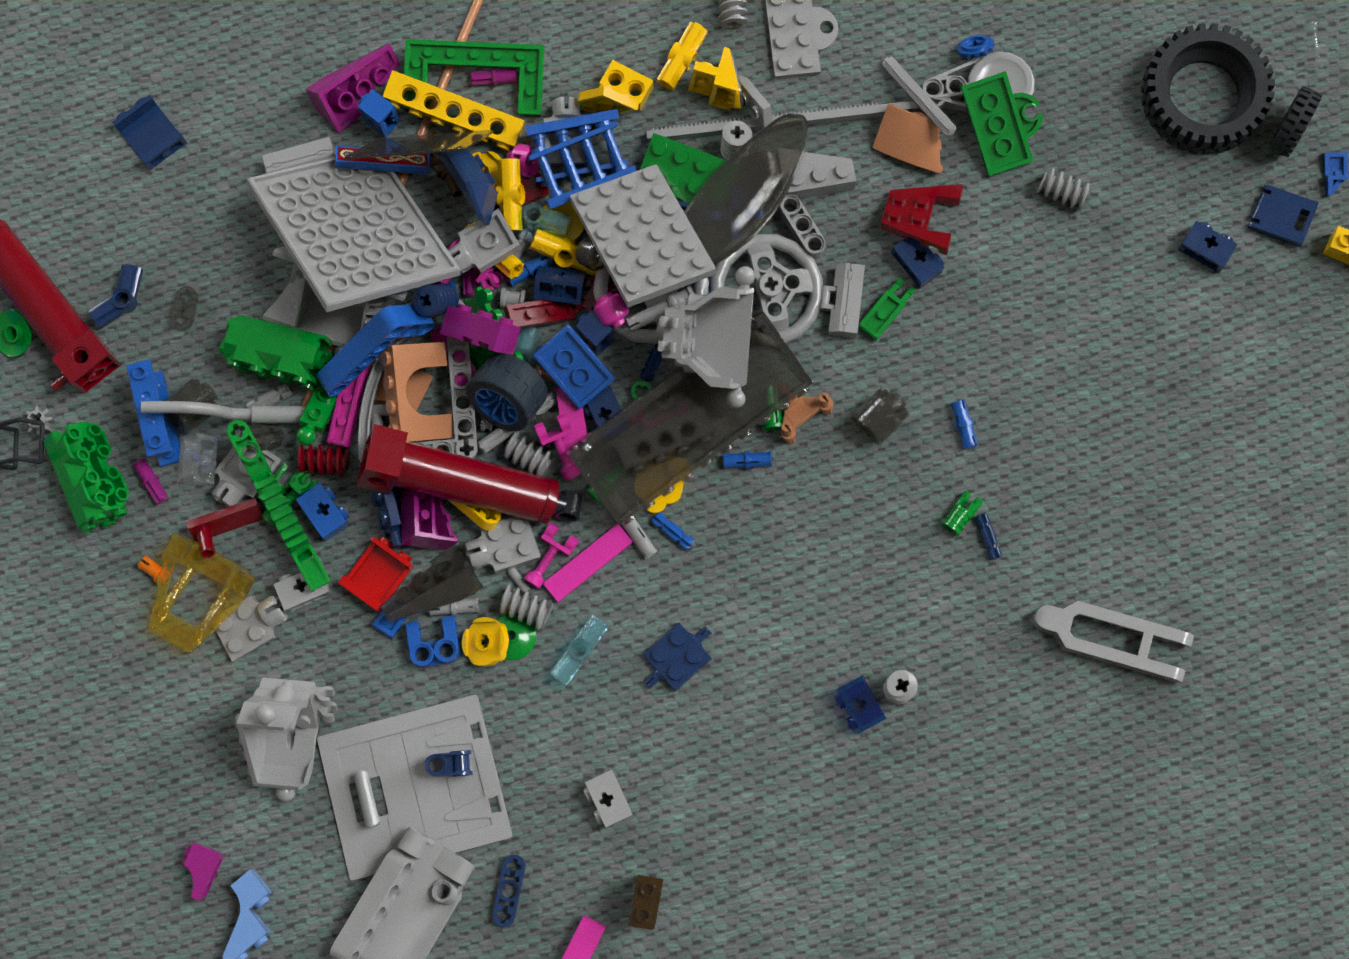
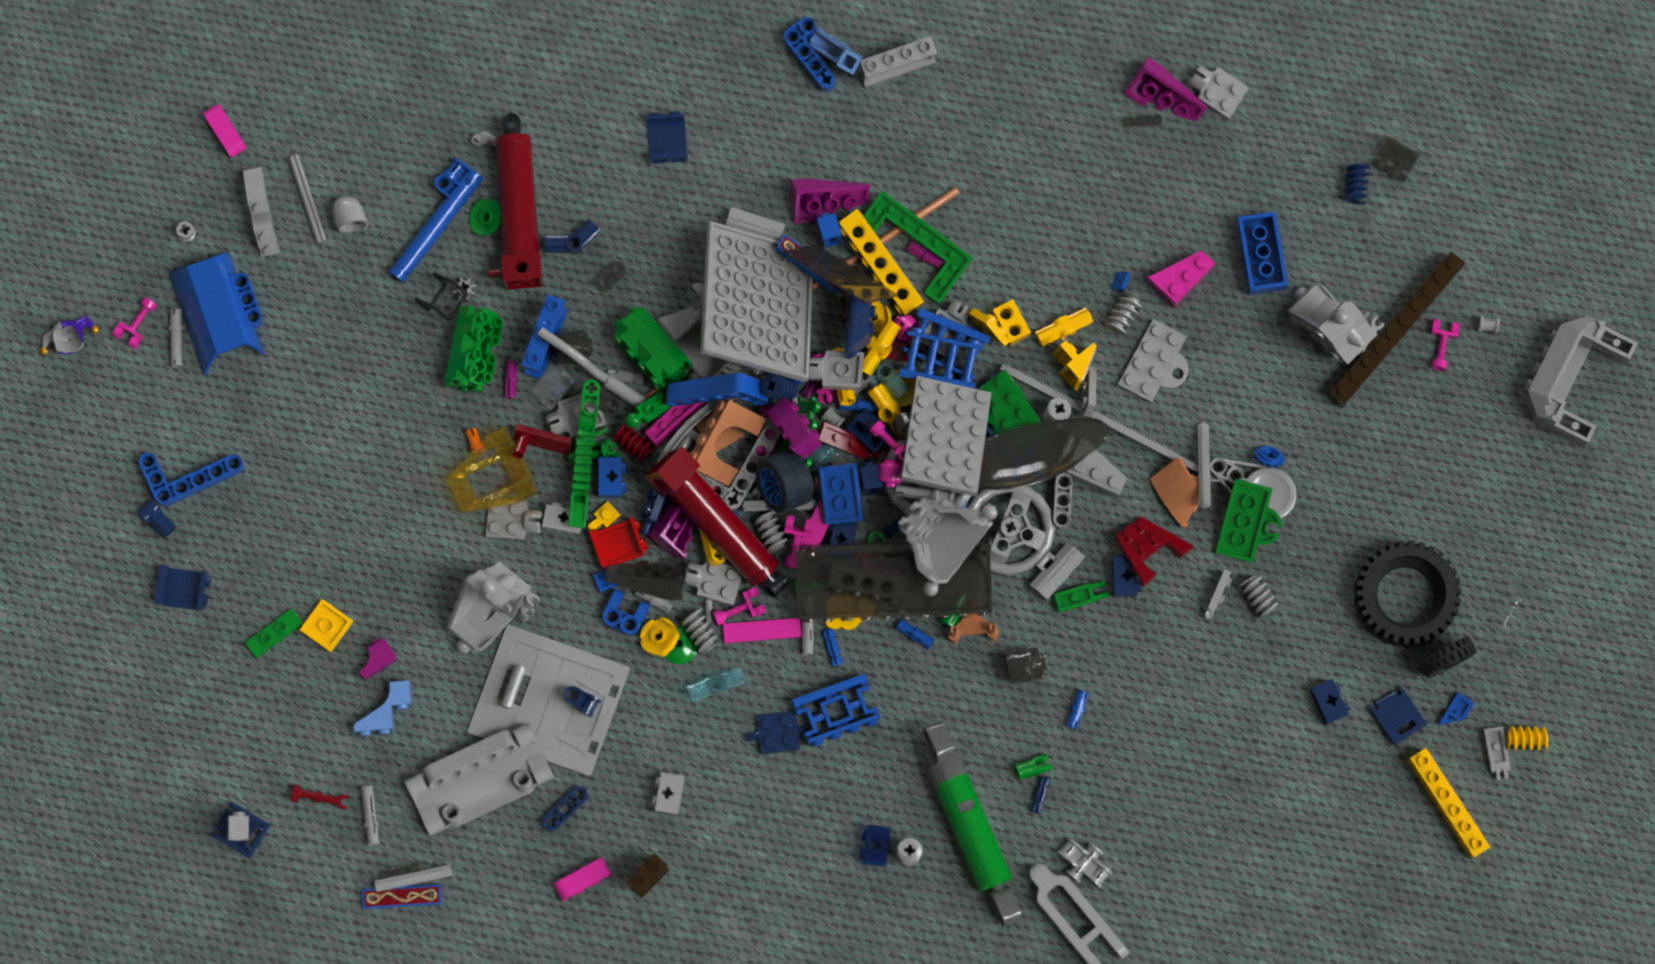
camera: 30 degrees right, 0 degrees up
(72, 917) = (274, 633): none -> green plate
(123, 871) = (326, 625): none -> yellow plate
(344, 555) = (605, 516): none -> yellow plate
(567, 275) = (878, 430): none -> dark pink bar
(706, 582) = (830, 694): none -> blue fence
(940, 614) = (969, 822): none -> piece
(1023, 218) = (1218, 598): none -> light grey hinge
(1082, 574) = (1079, 858): none -> light grey axle

